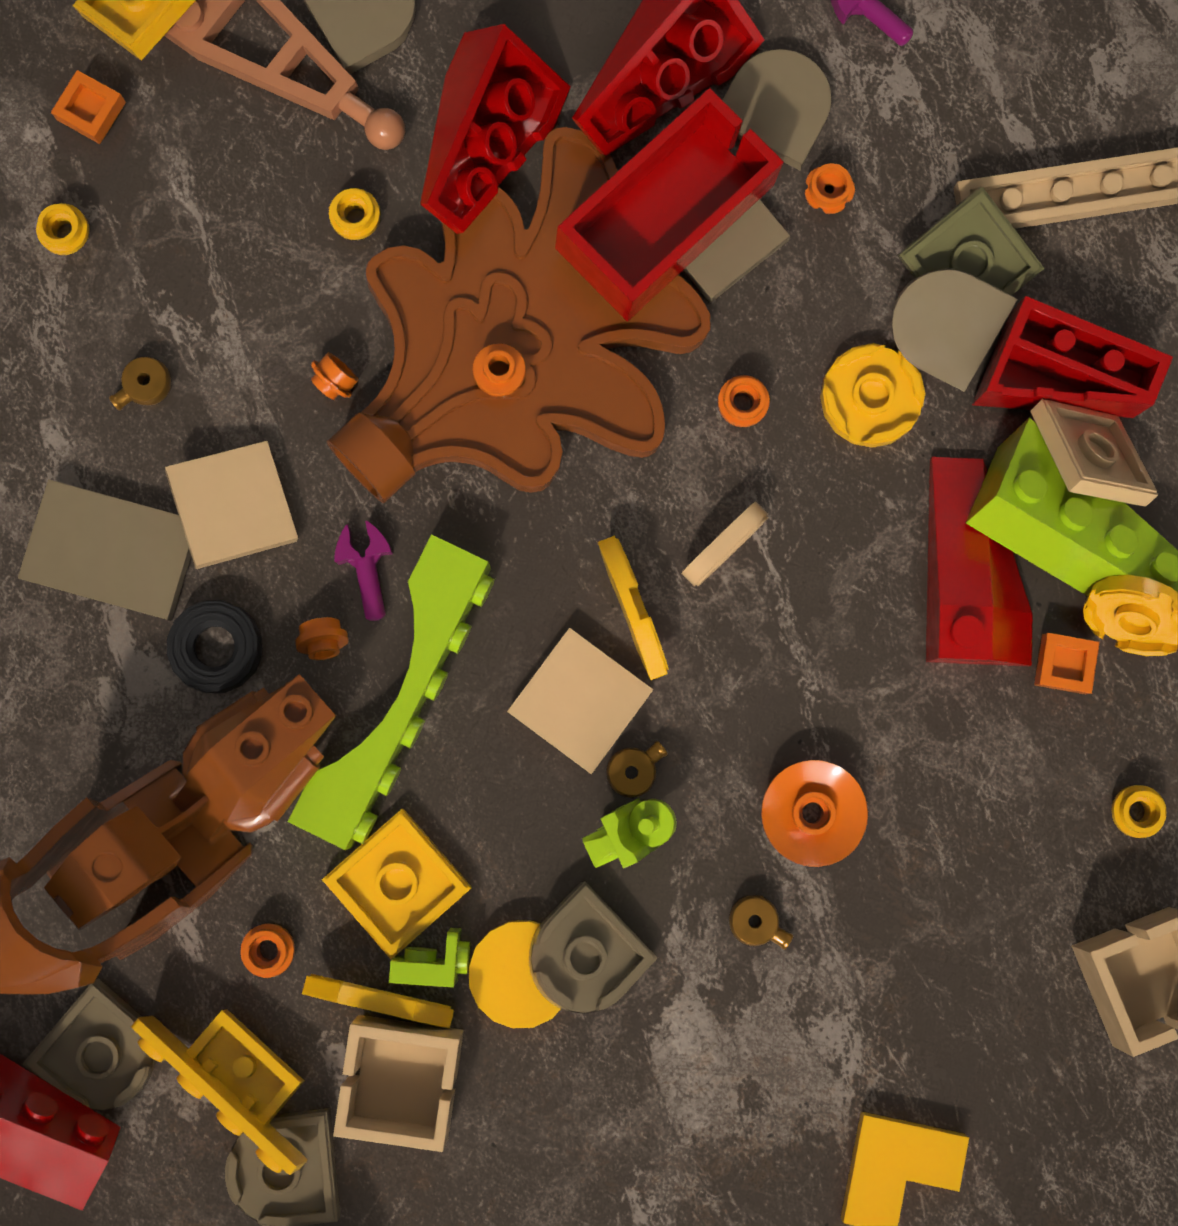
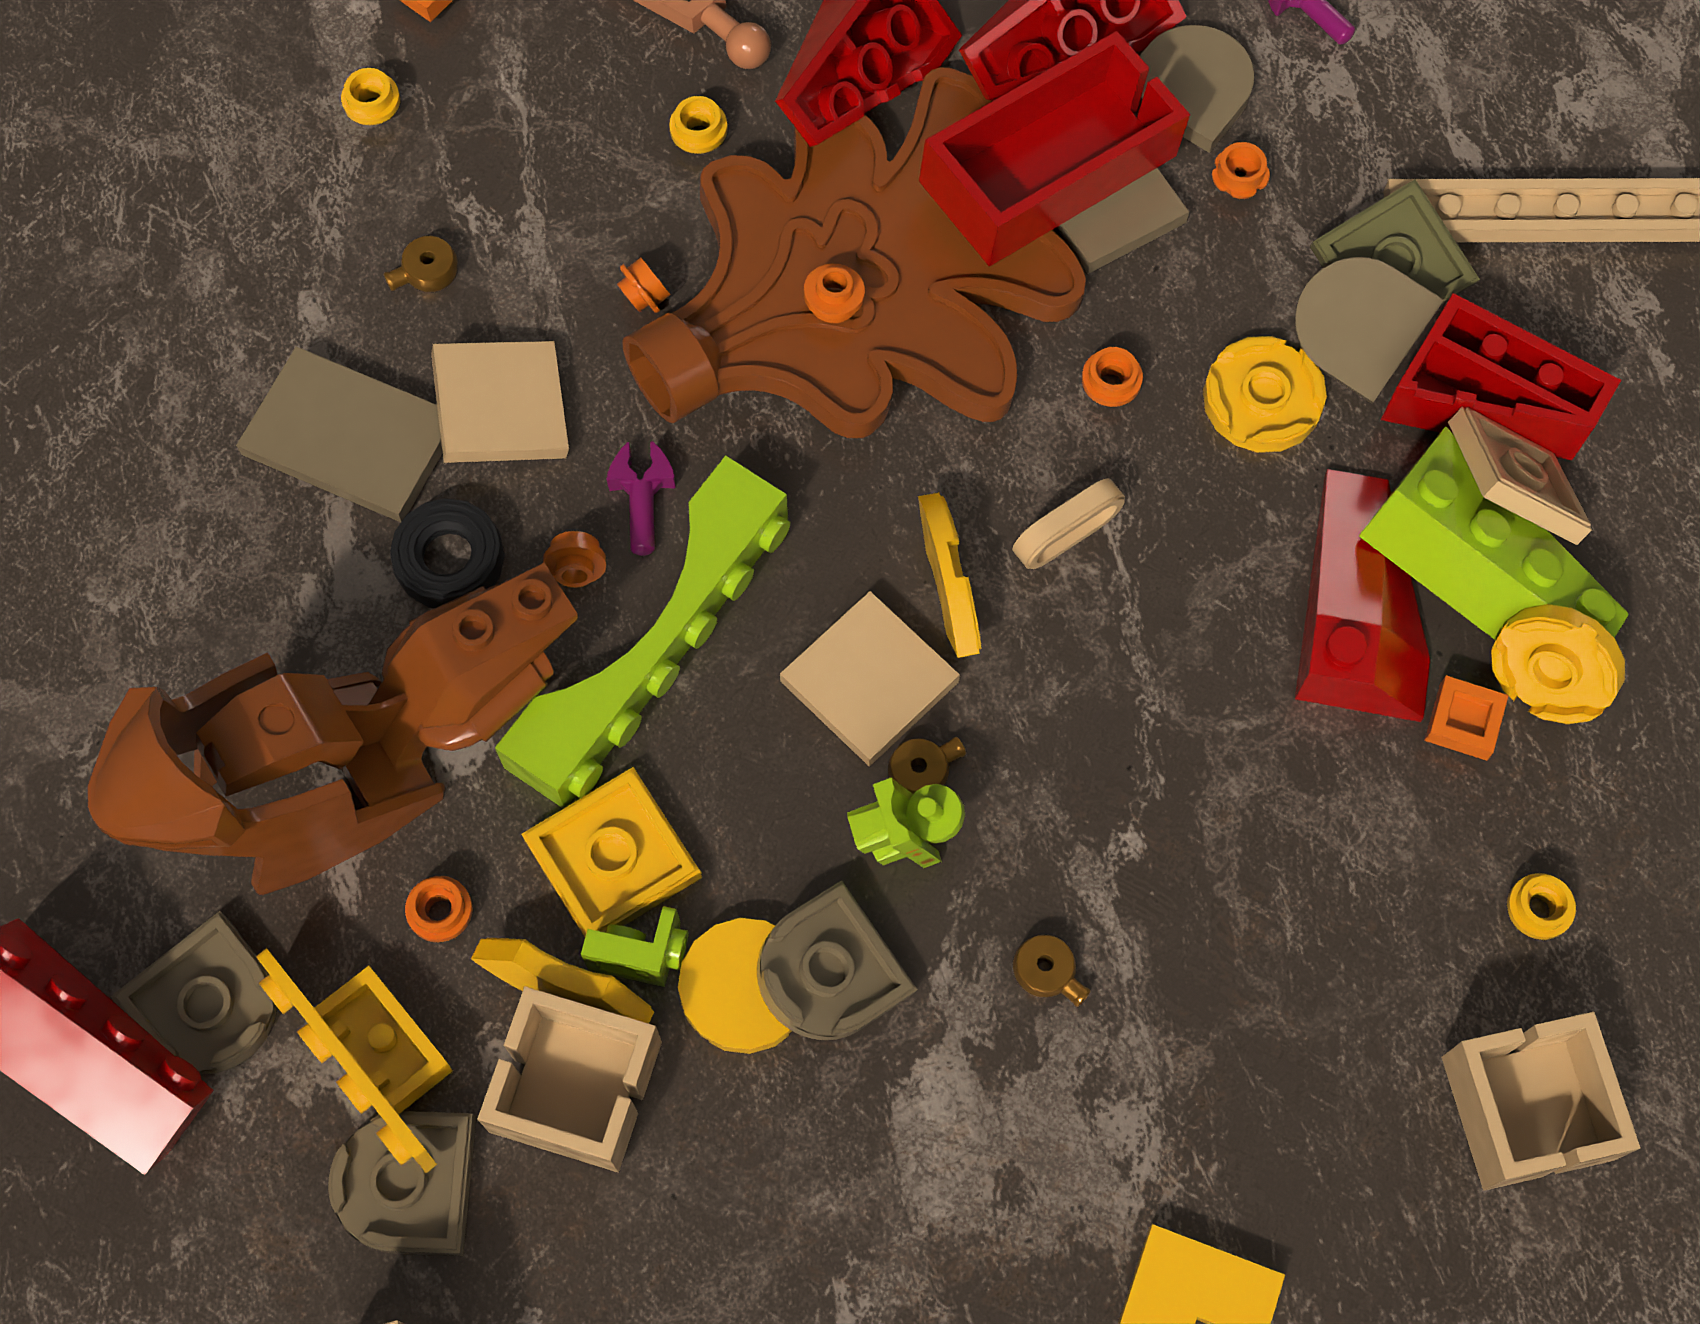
camera: 10 degrees right, 15 degrees down
(841, 819) = (1140, 813): orange dish -> none

